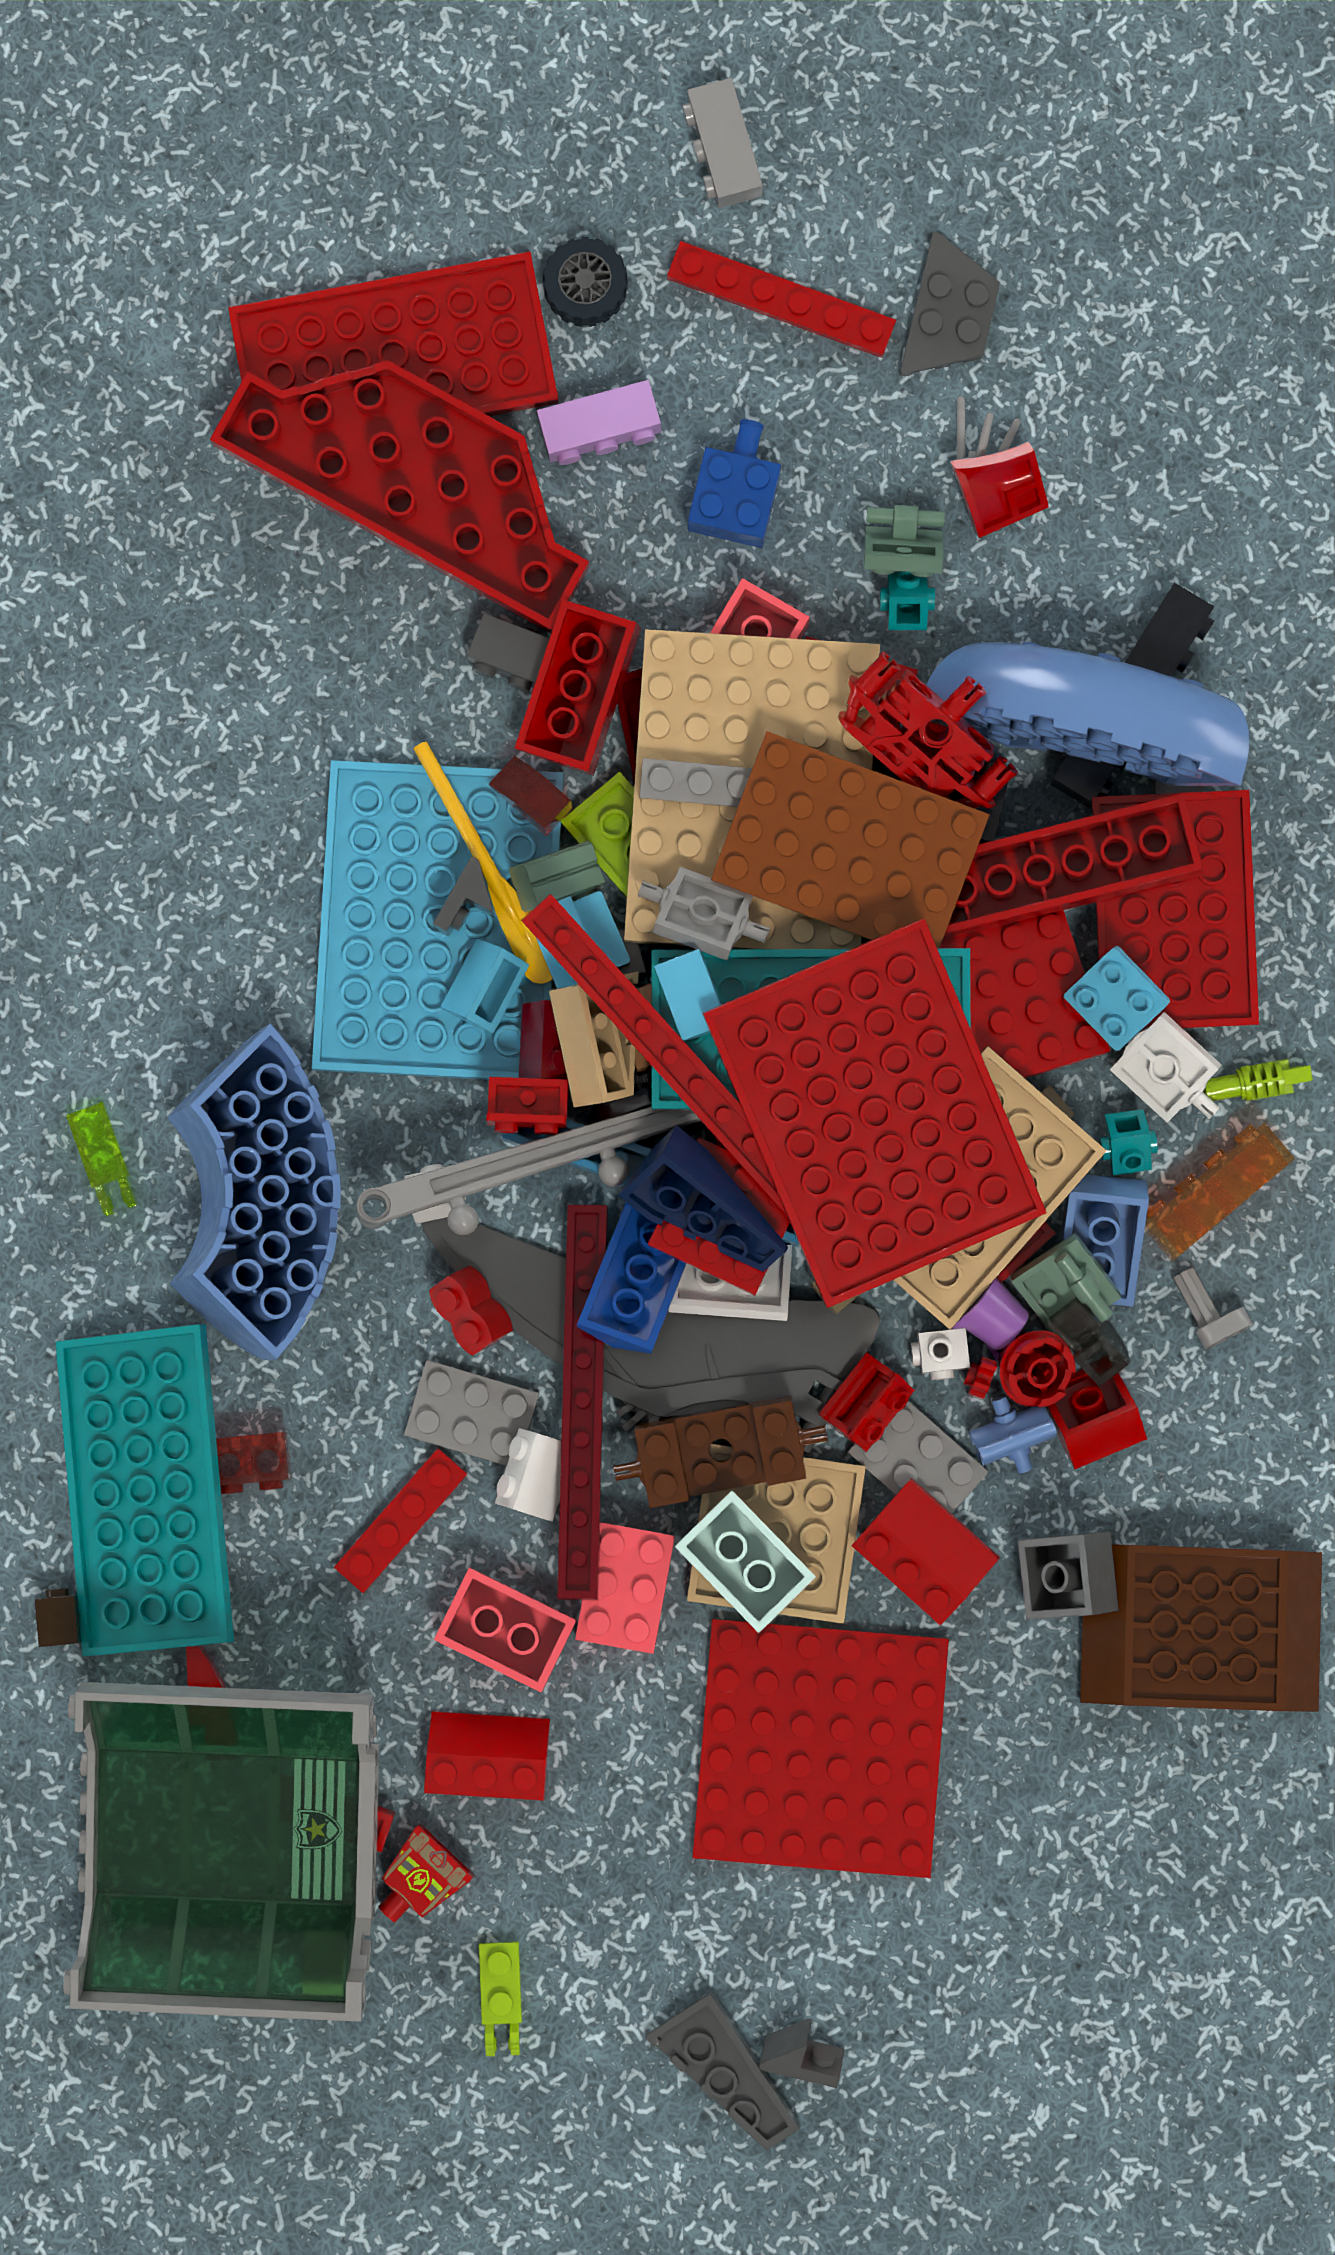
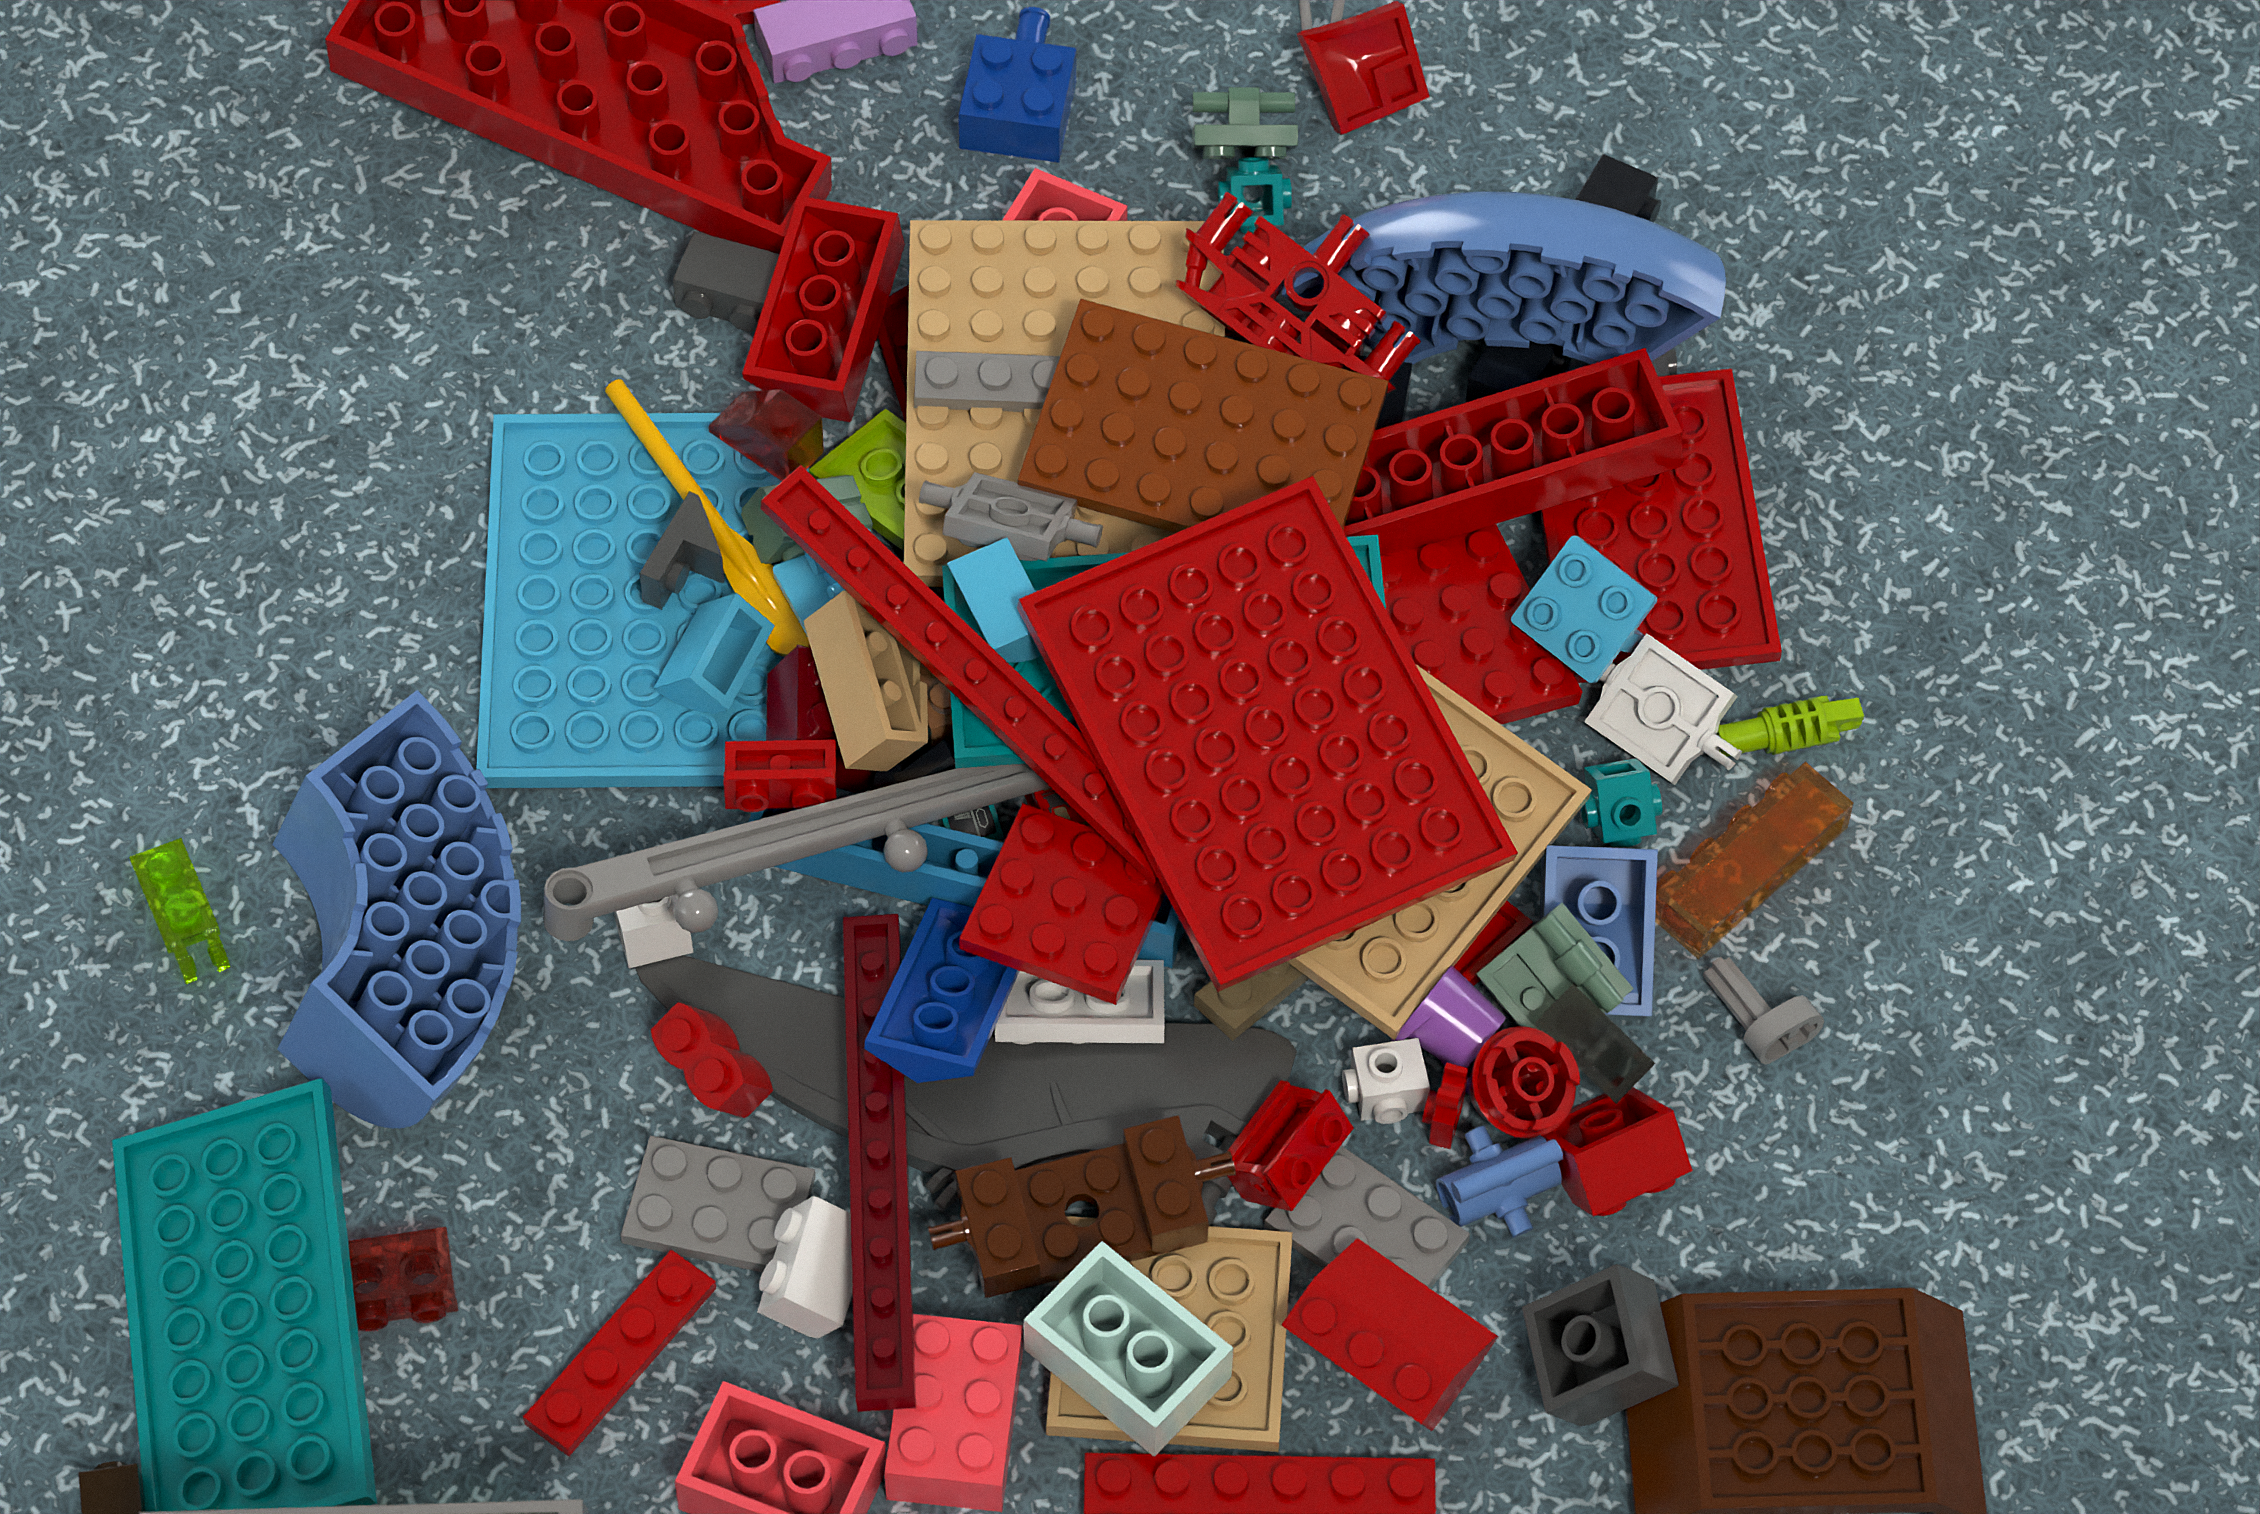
camera: 10 degrees left, 25 degrees down
(692, 1191) = (1024, 860): dark blue wedge -> none

